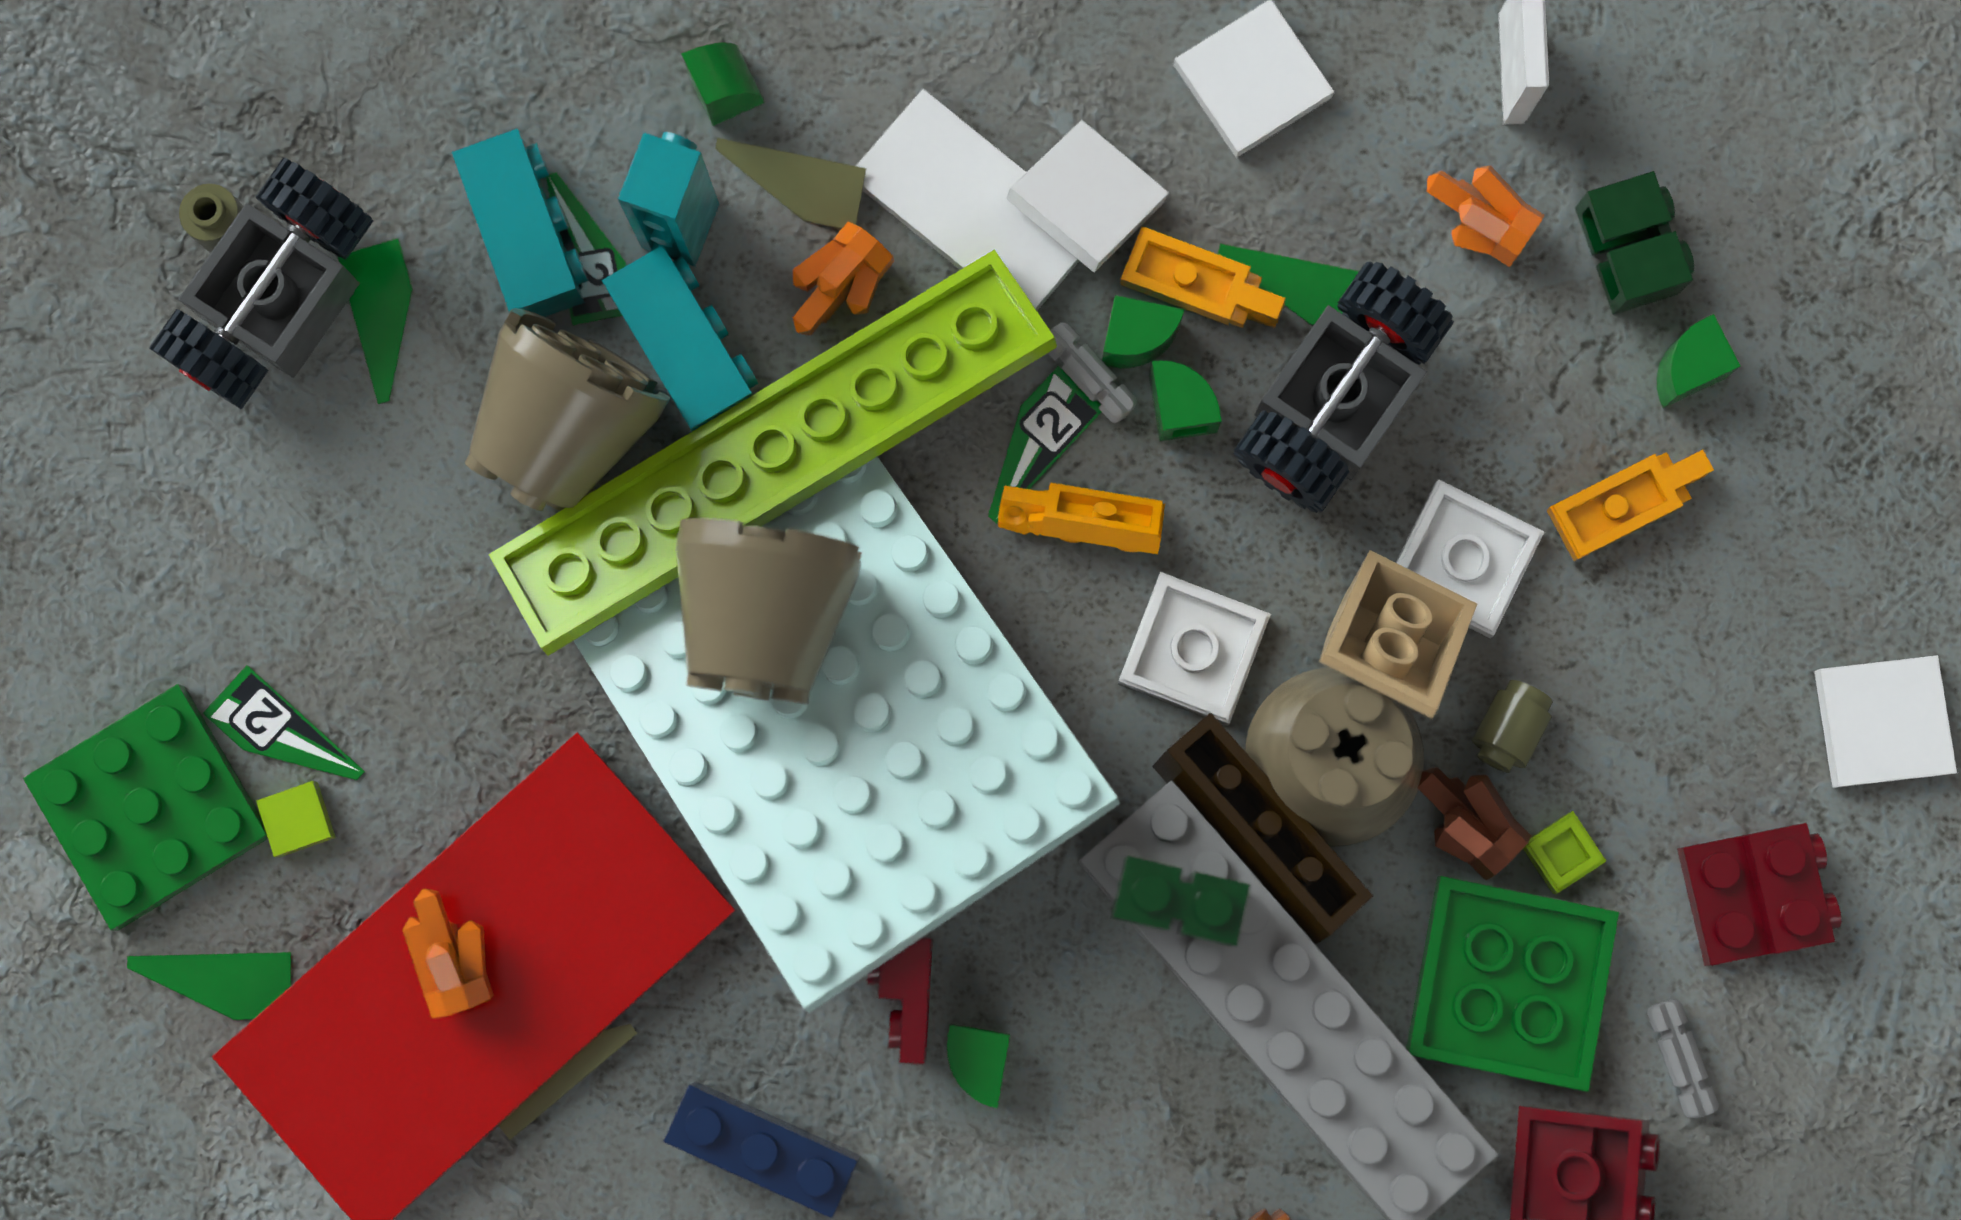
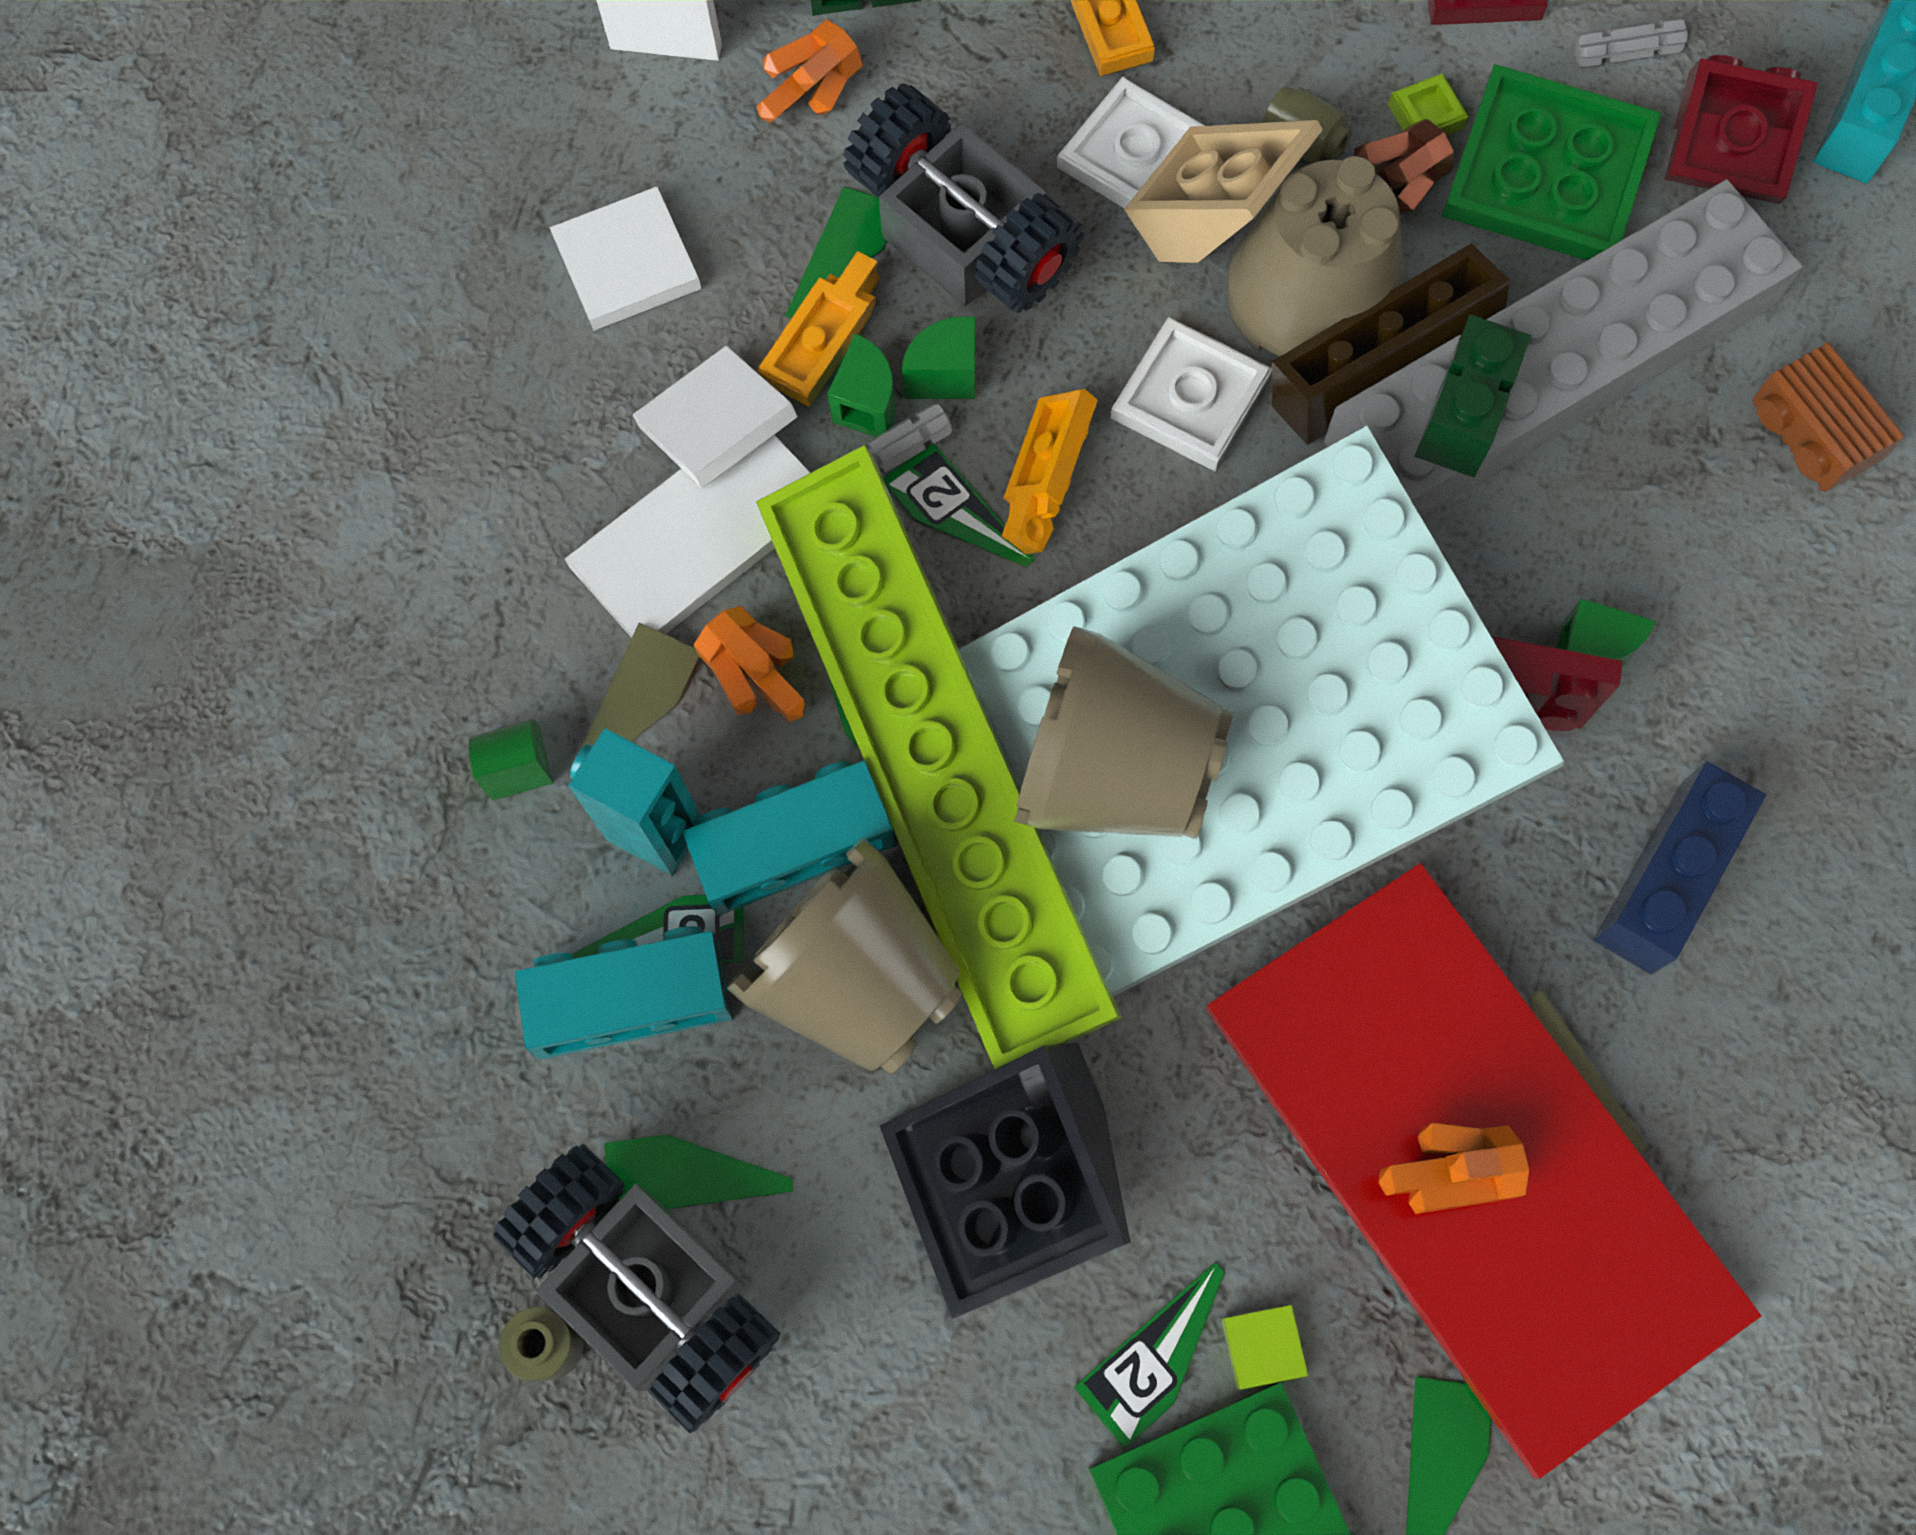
camera: 80 degrees left, 10 degrees down
(405, 584) = (1011, 1177): none -> black slope

